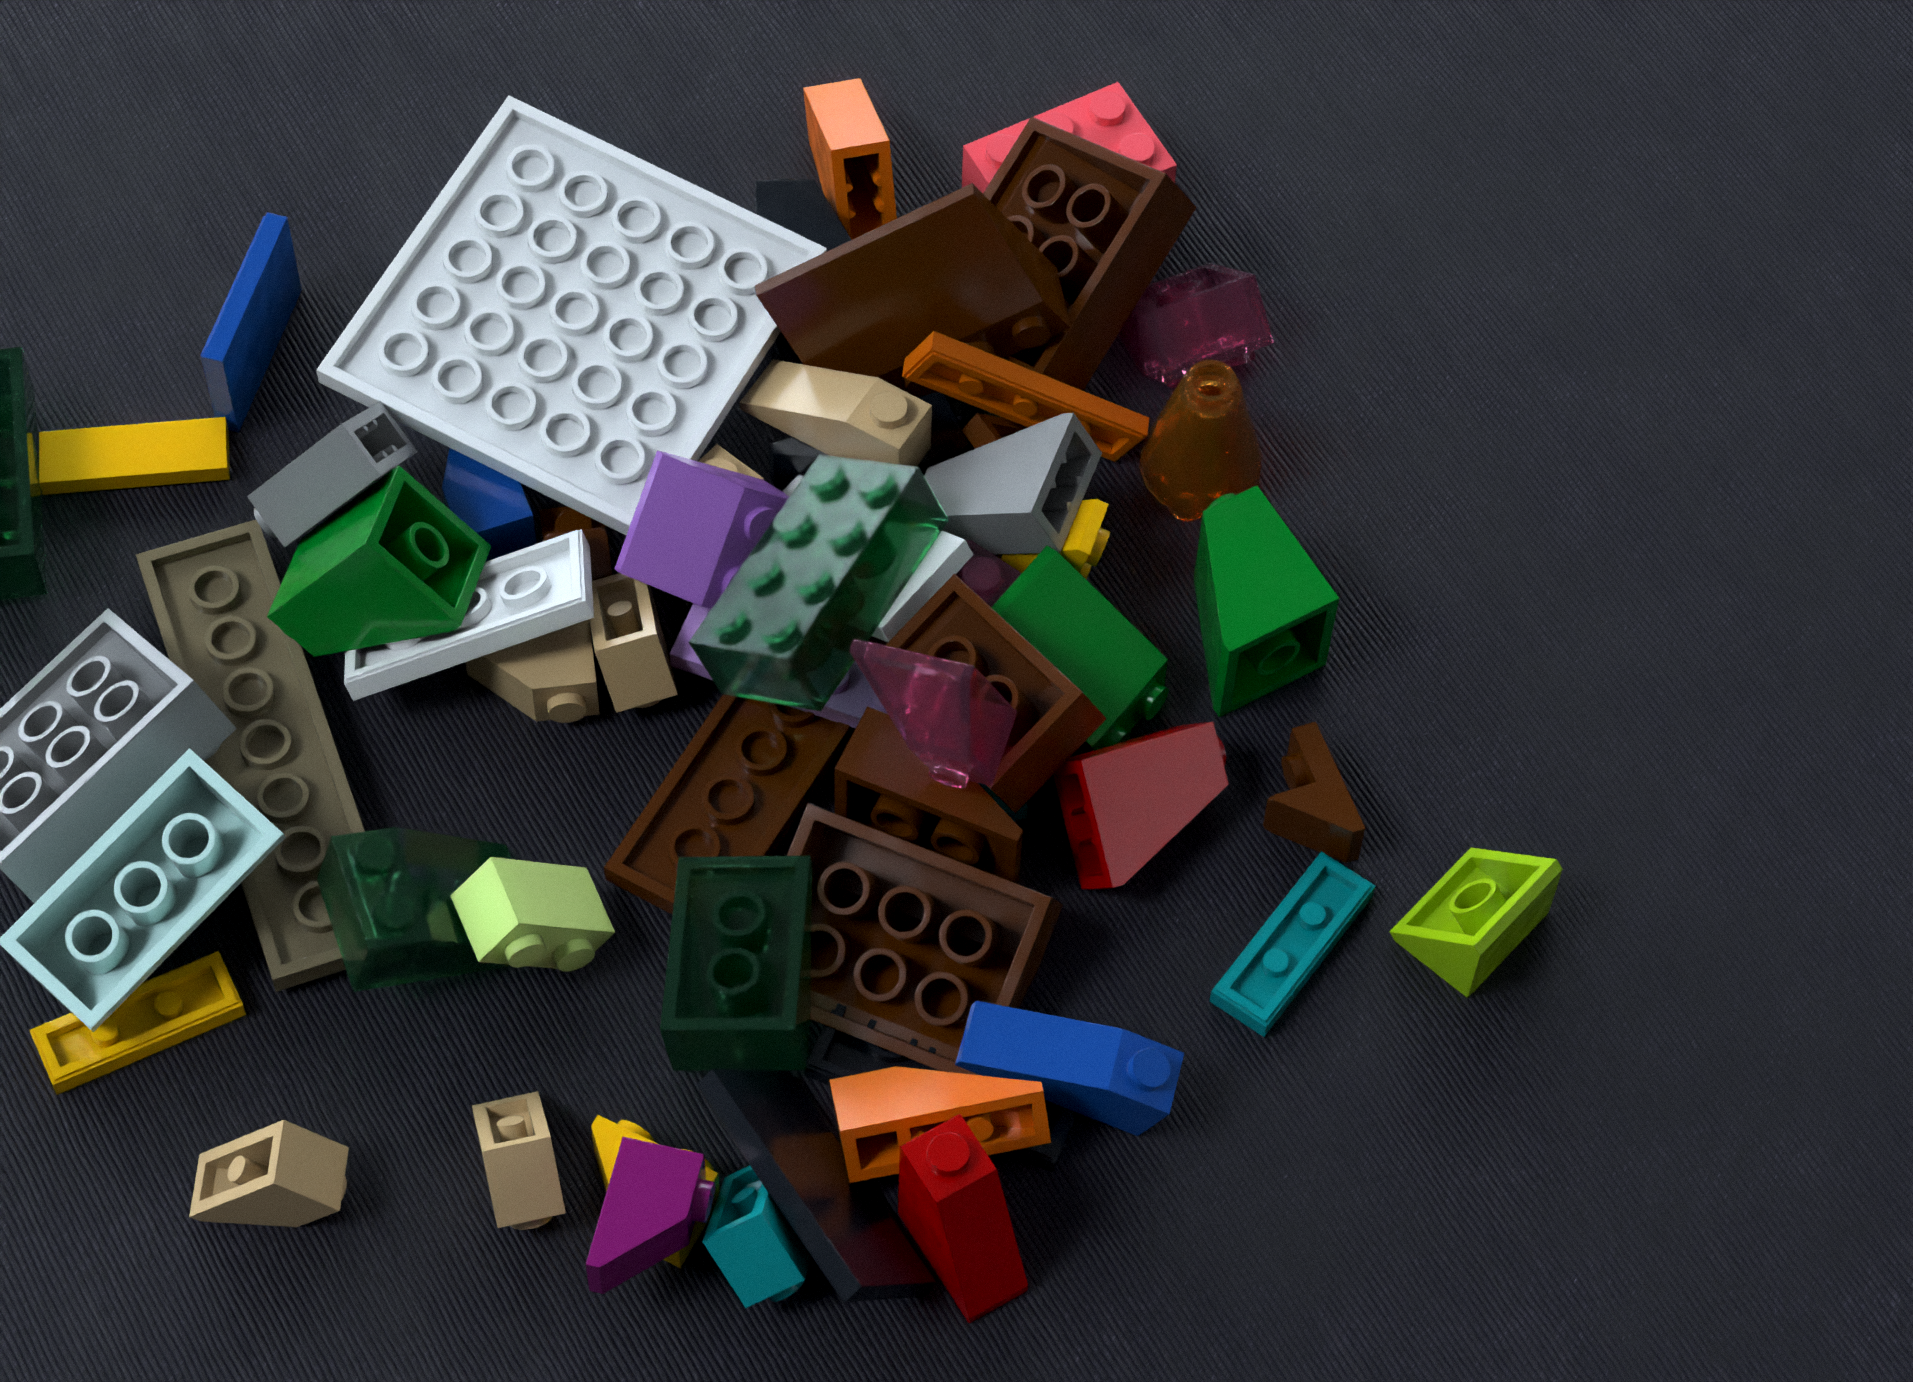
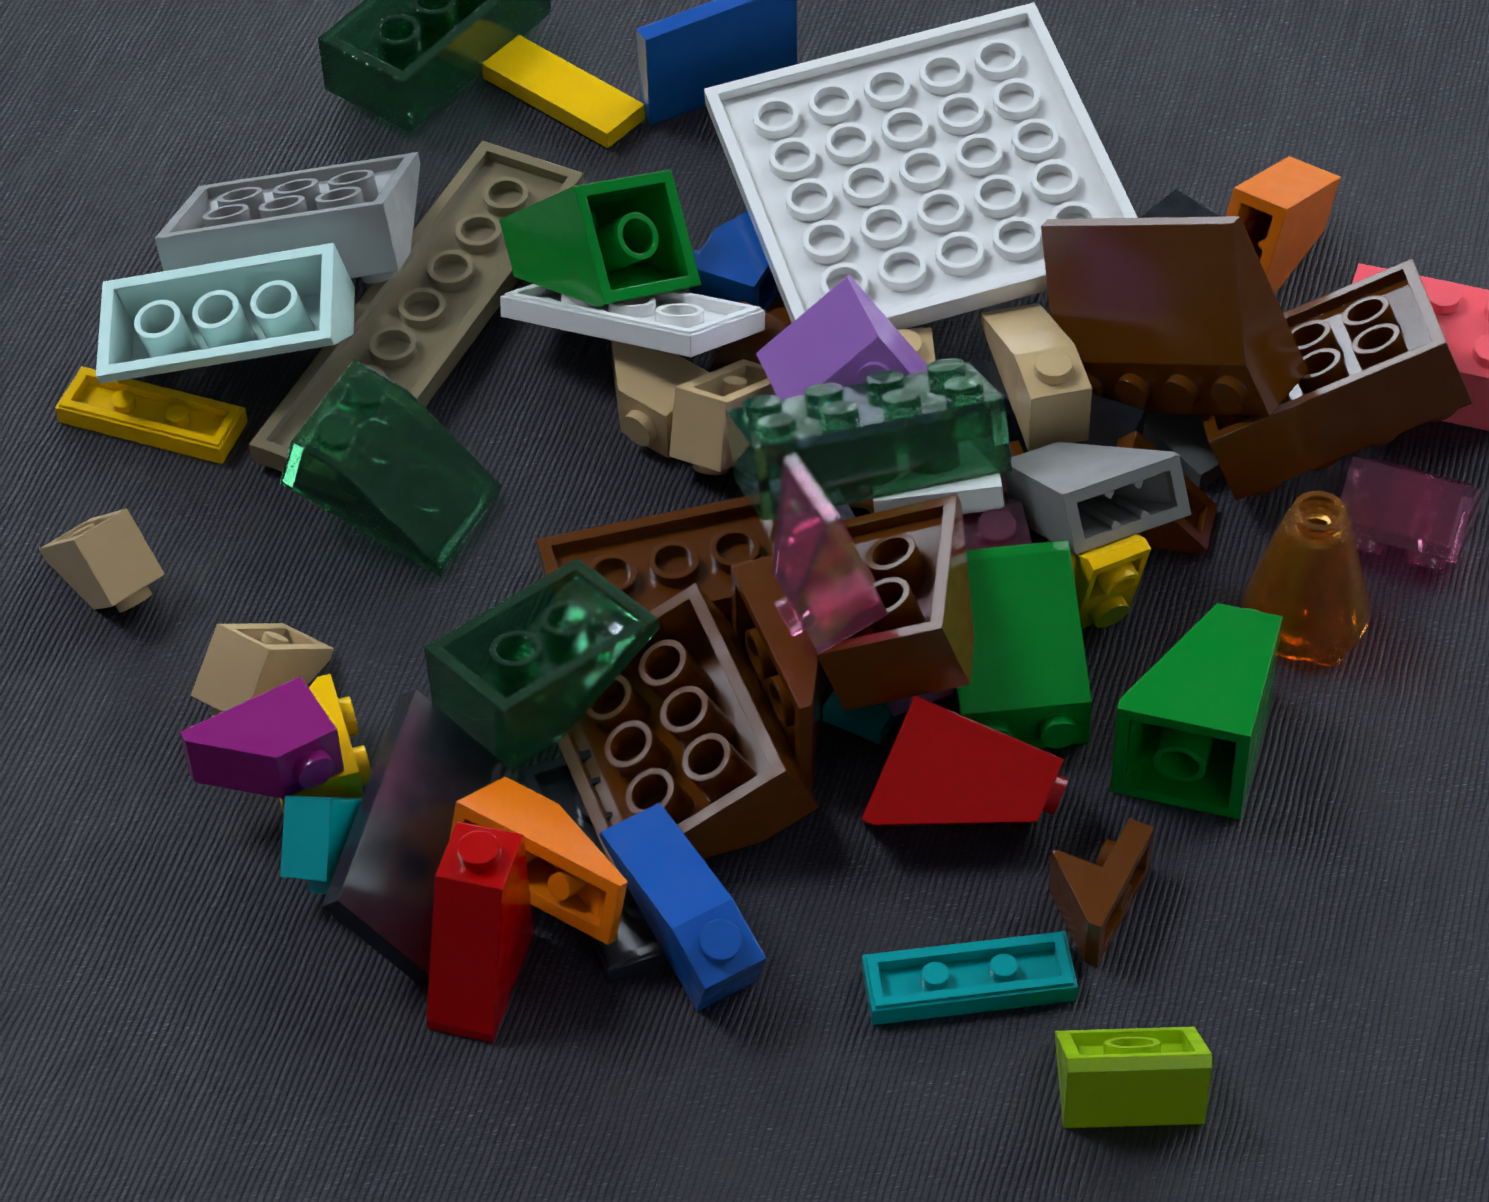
camera: 50 degrees right, 10 degrees down
(330, 474) = (652, 142): light grey slope -> none
(532, 914) = (443, 522): yellowish green brick -> none
(1020, 392) = (1203, 461): orange tile -> none

